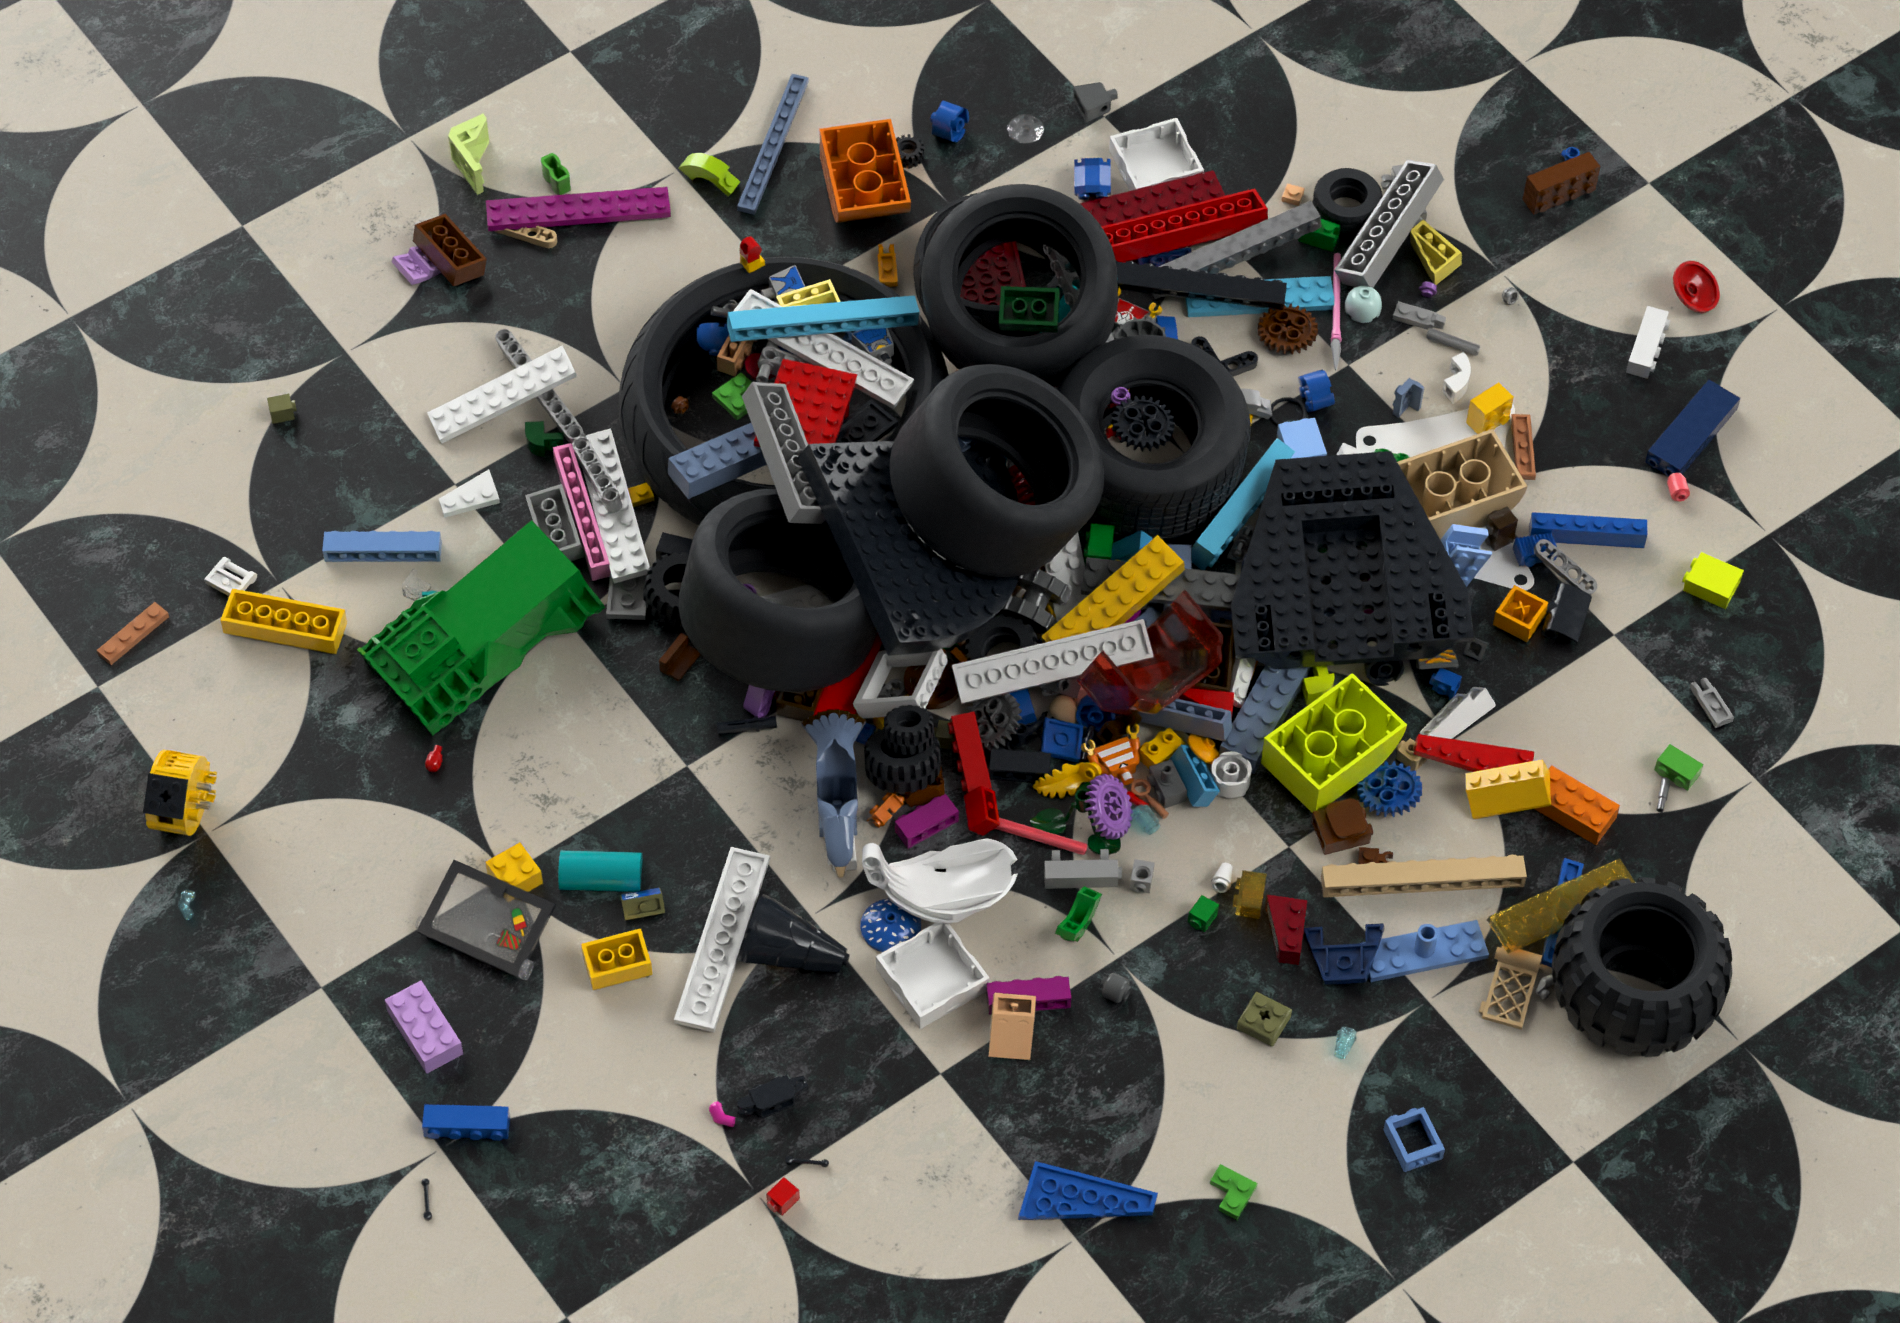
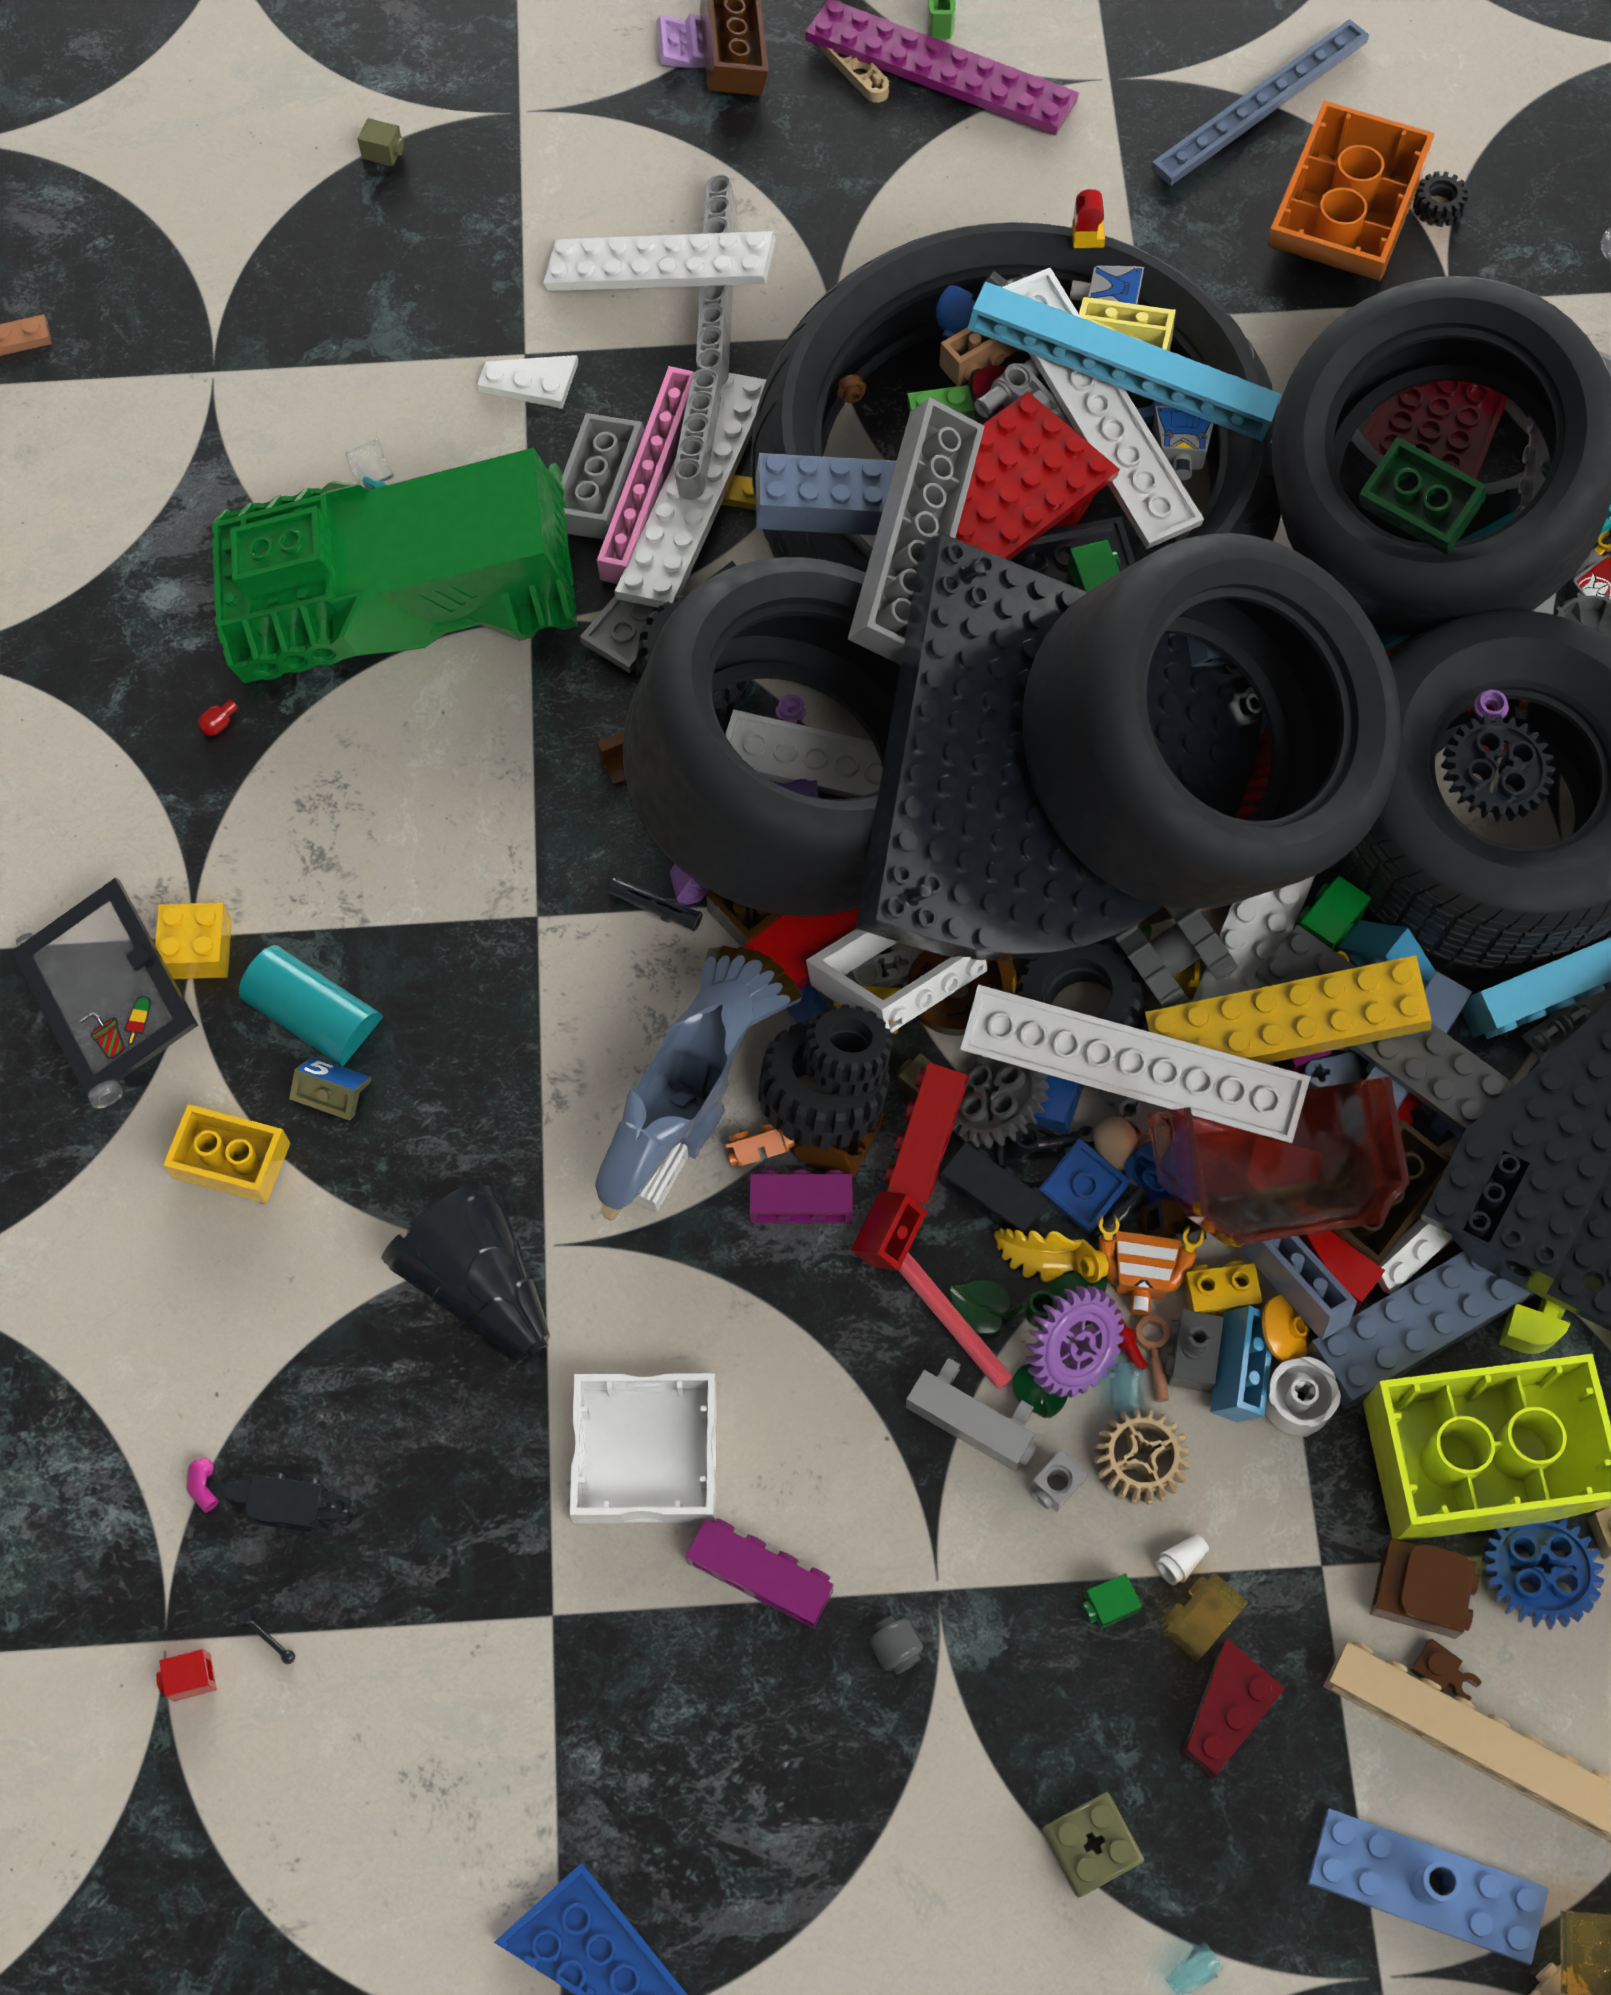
camera: 35 degrees right, 10 degrees up
(225, 581) = (147, 335): white plate -> none
(284, 621) = (169, 423): yellow brick -> none
(382, 546) = (367, 388): medium blue brick -> none
(539, 441) = (669, 346): dark green brick -> none
(710, 168) = (1151, 97): lime arch -> none
(722, 939) = (354, 1238): white plate -> none
(879, 429) = (1092, 564): none -> green brick
(884, 933) = (647, 1351): blue dish -> none
(887, 266) = (1300, 341): light orange hinge -> none
(949, 121) = (1525, 184): blue brick -> none
(973, 880) = (739, 1333): white windscreen -> none
(1012, 1026) = (695, 1611): light nougat slope -> none
(1080, 915) = (917, 1491): green arch -> none
(1178, 853) = (1148, 1470): none -> tan gear
(1347, 961) = (1282, 1828): dark blue wing -> none

